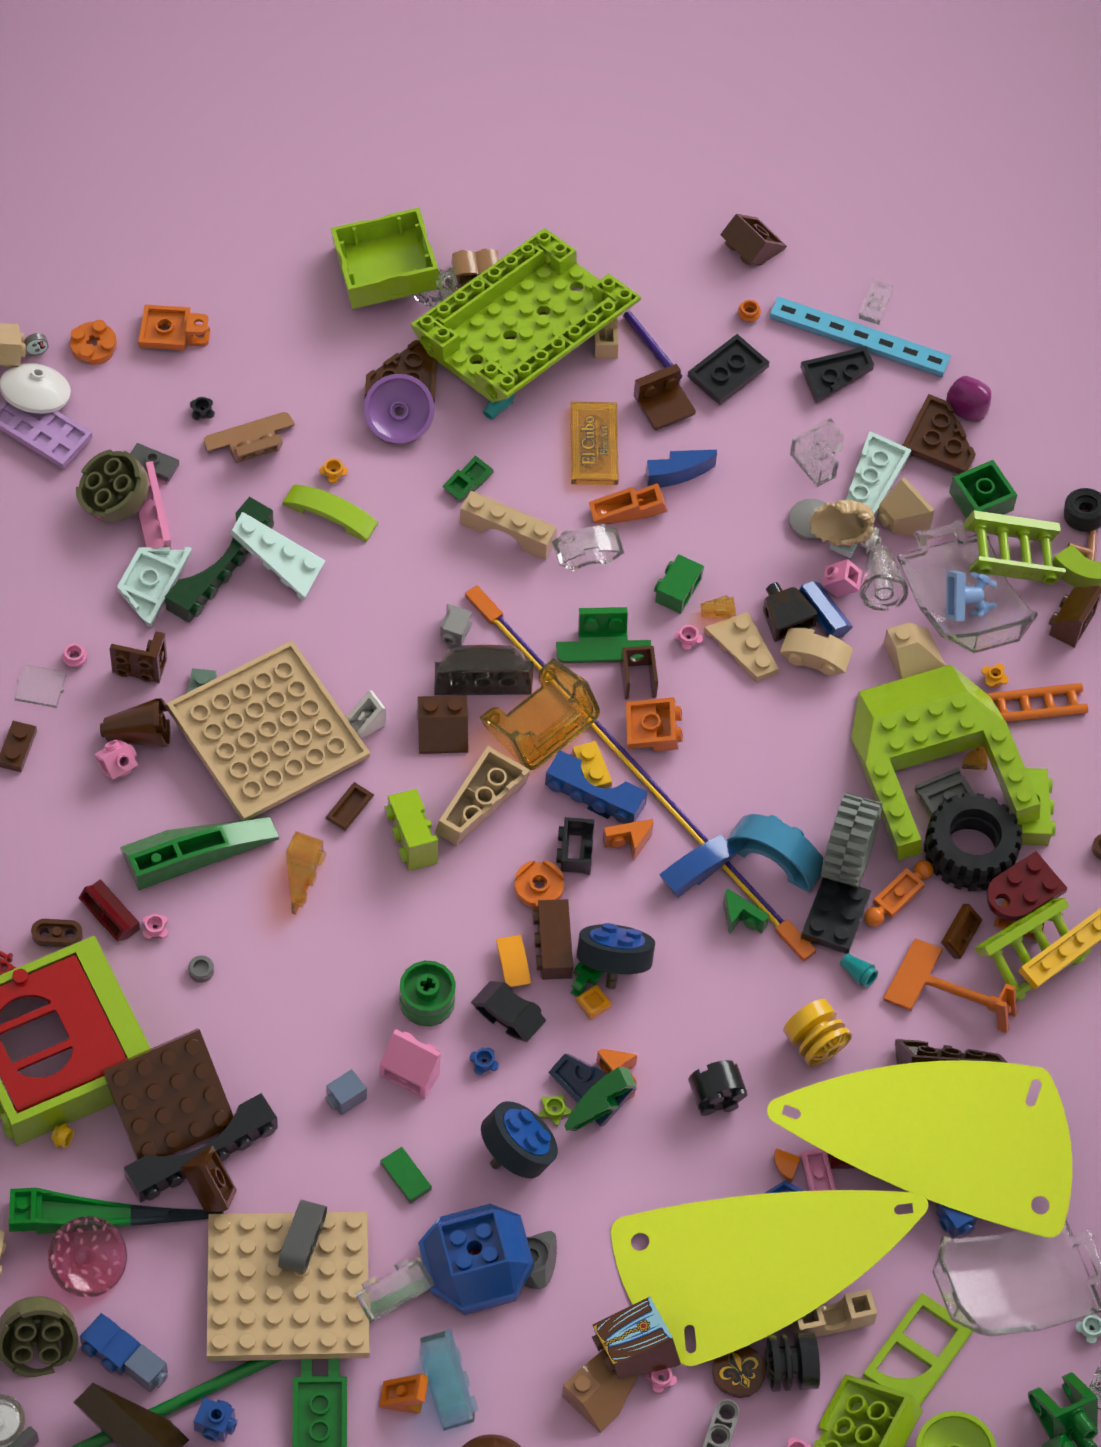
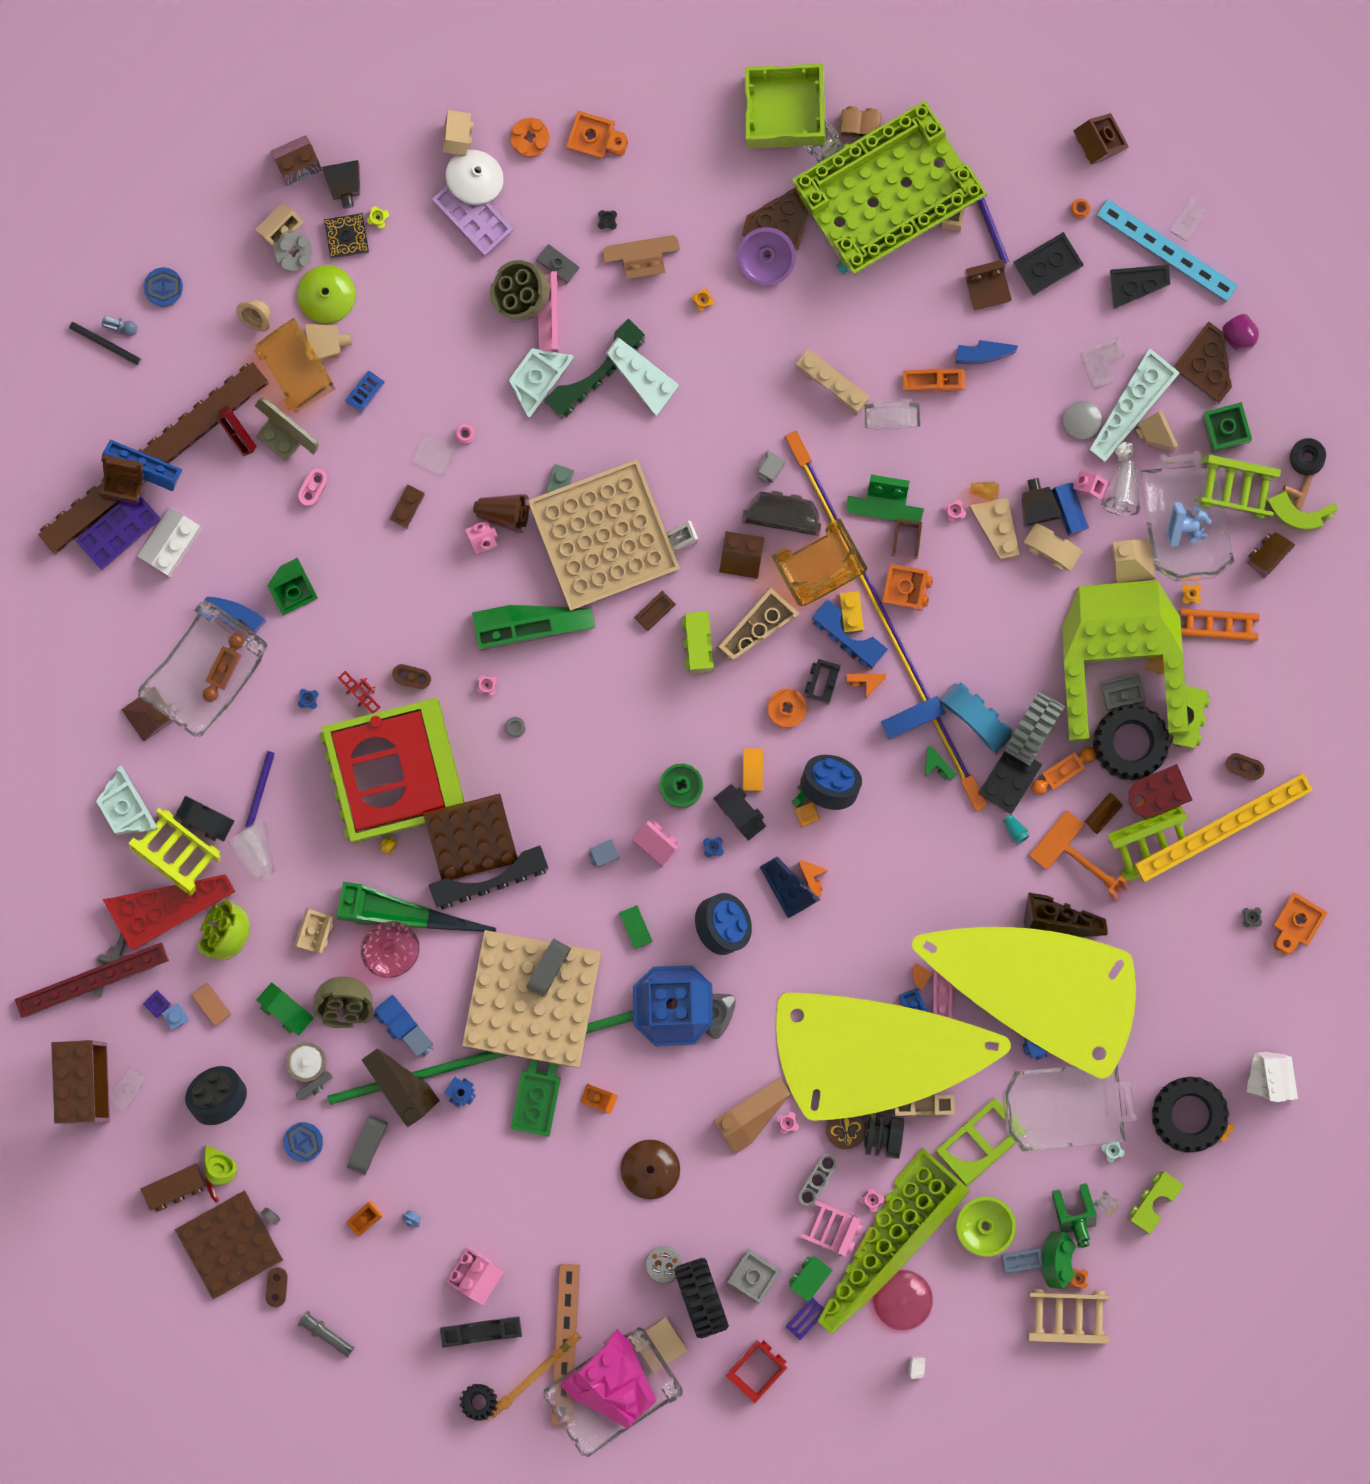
camera: 15 degrees right, 25 degrees up
(36, 344) = (482, 132): tile -> none
(109, 911) = (453, 666): dark red piece -> none
(138, 663) = (527, 452): reddish brown bracket -> none
(210, 1180) = (490, 908): reddish brown slope -> none
(302, 860) = (607, 654): clear yellow slope -> none
(333, 508) = (693, 337): lime slope -> none
(394, 1289) = (598, 1024): clear brick -> none
(447, 1380) = (632, 1097): clear light blue wedge -> none
(468, 479) = (810, 328): green slope -> none
(553, 939) = (787, 757): reddish brown brick -> none
(558, 1103) = (757, 890): lime plate -> none
(594, 443) = (921, 313): clear yellow tile -> none
(600, 1099) = (792, 904): green slope -> none
(635, 1341) = (773, 1099): reddish brown slope -> none
(679, 583) = (958, 462): green brick -> none
(718, 1087) = (882, 909): black brick -> none
(817, 1032) = (968, 880): yellow wheel -> none
(843, 522) = (1102, 440): tan piece -> none

